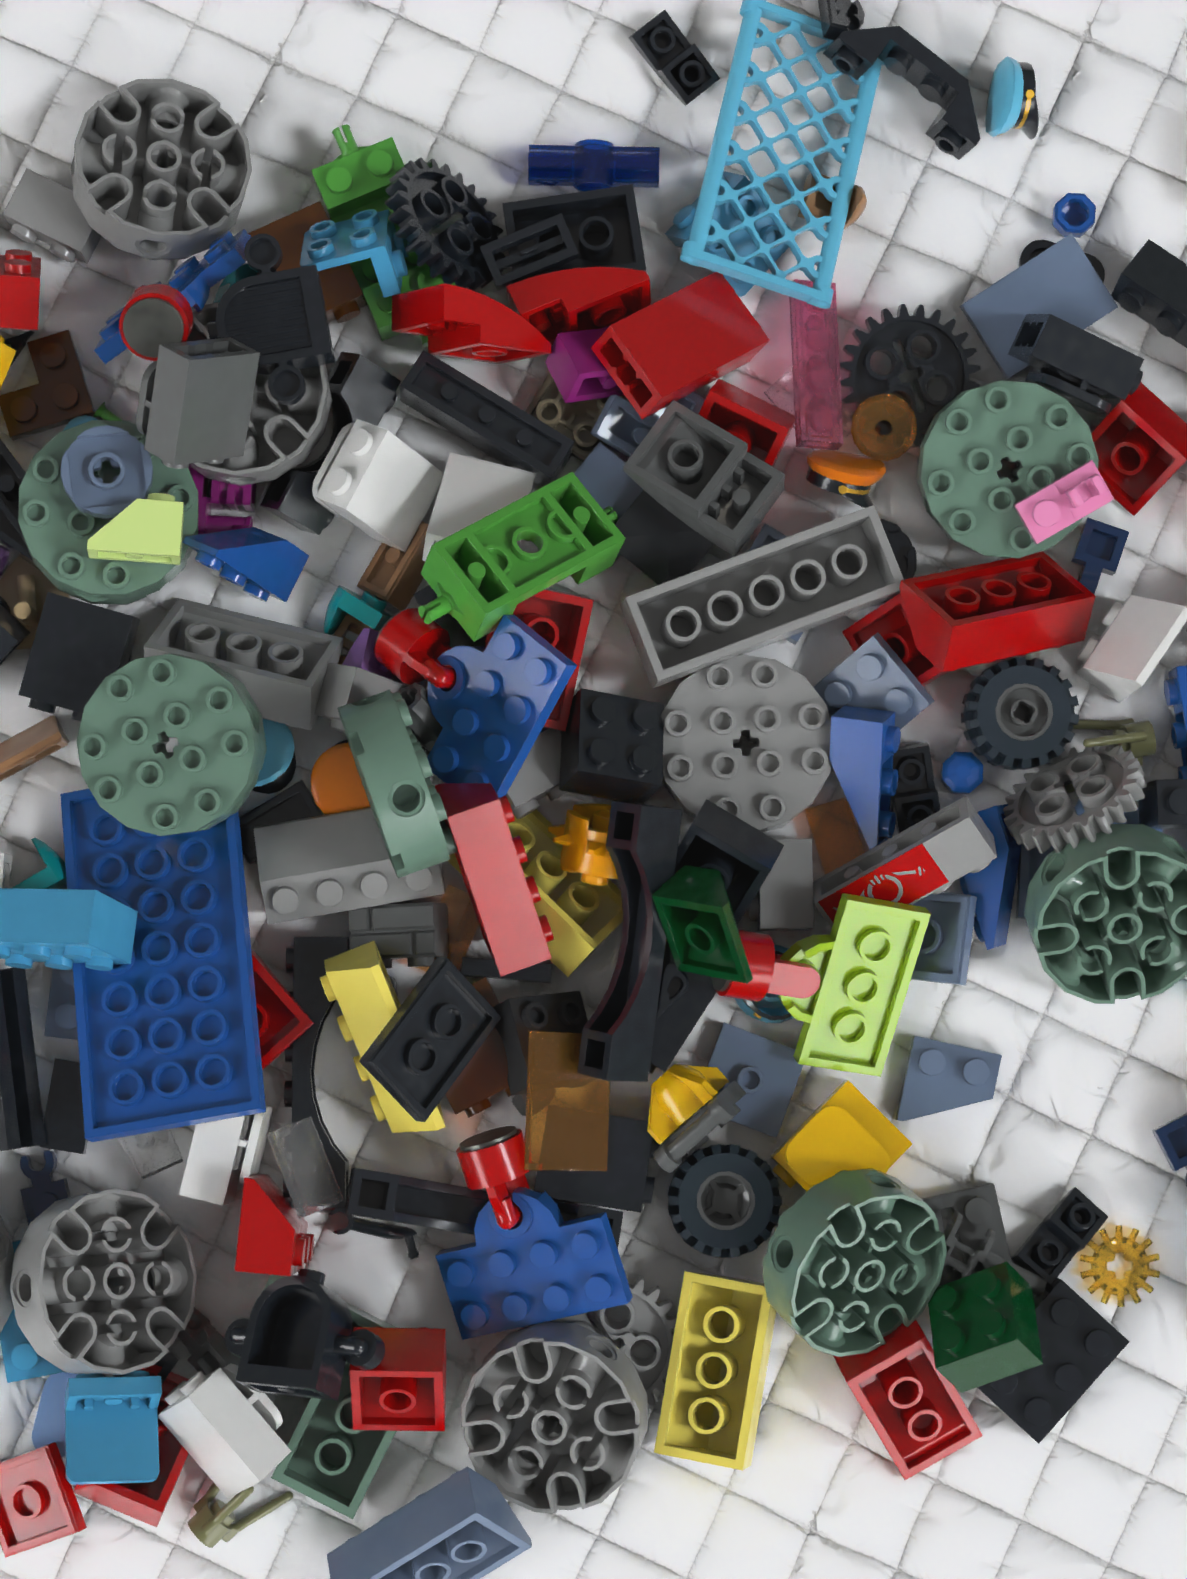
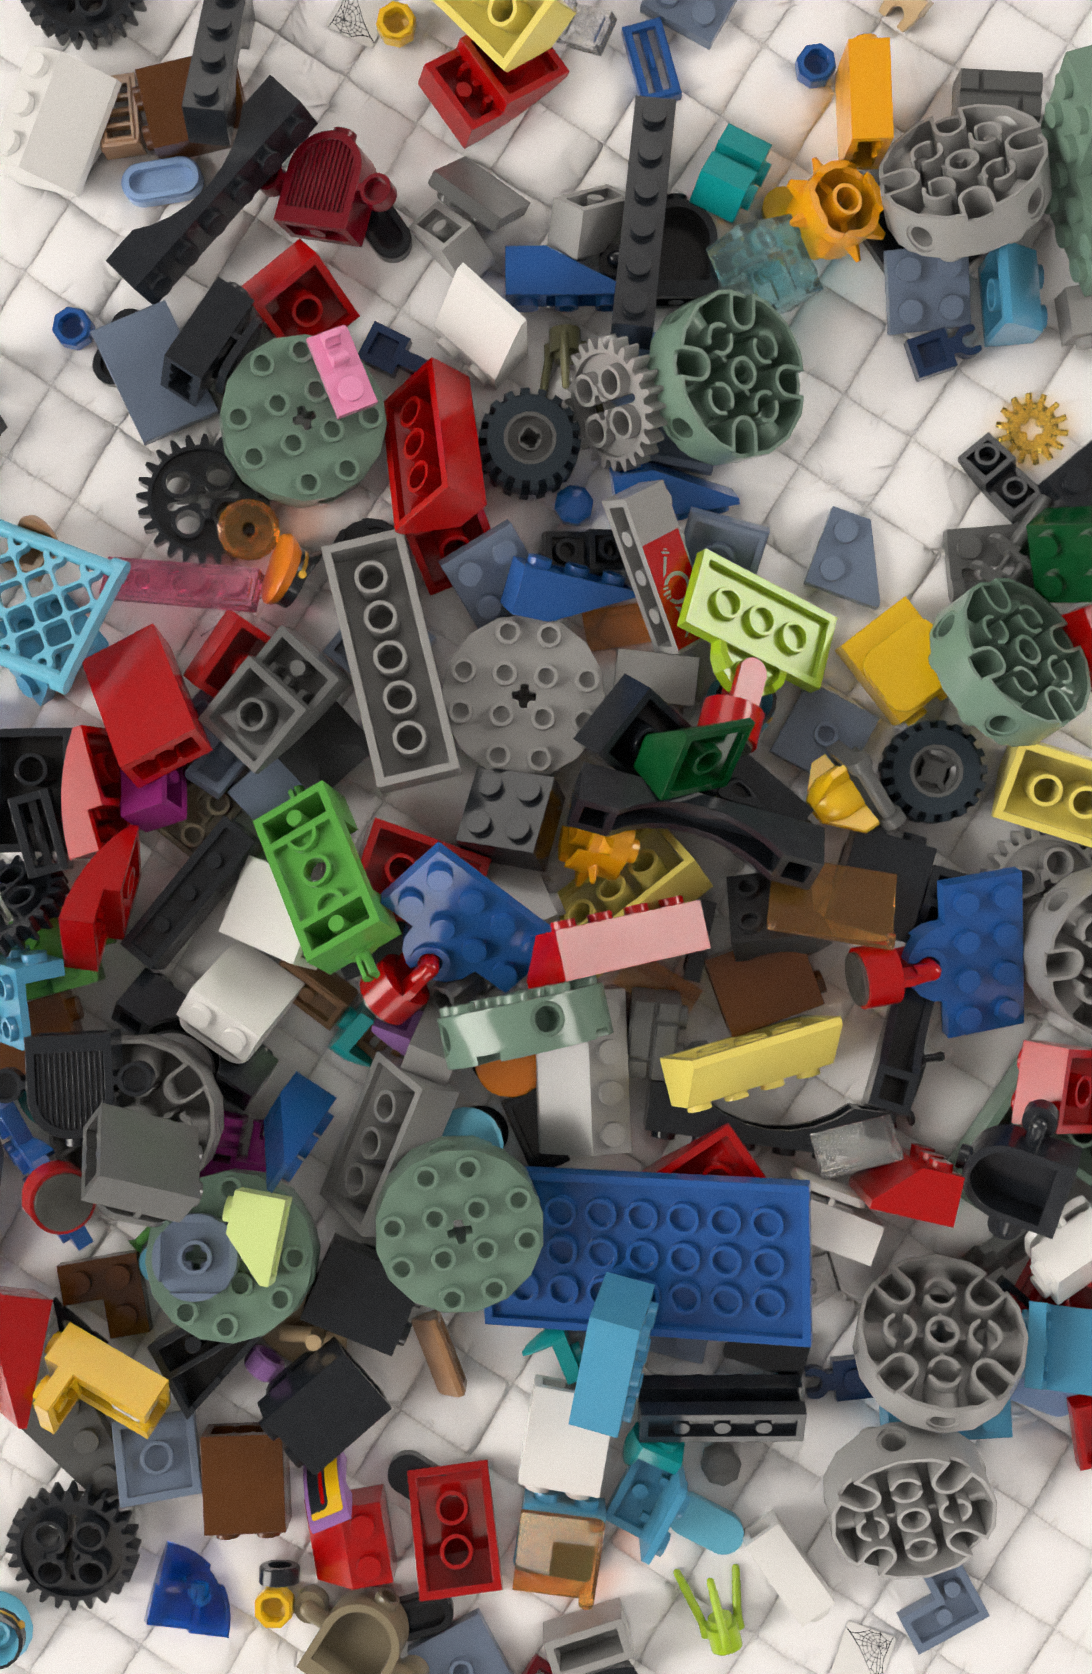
camera: 80 degrees left, 5 degrees up
(430, 1039) = (762, 1020): black tile -> none

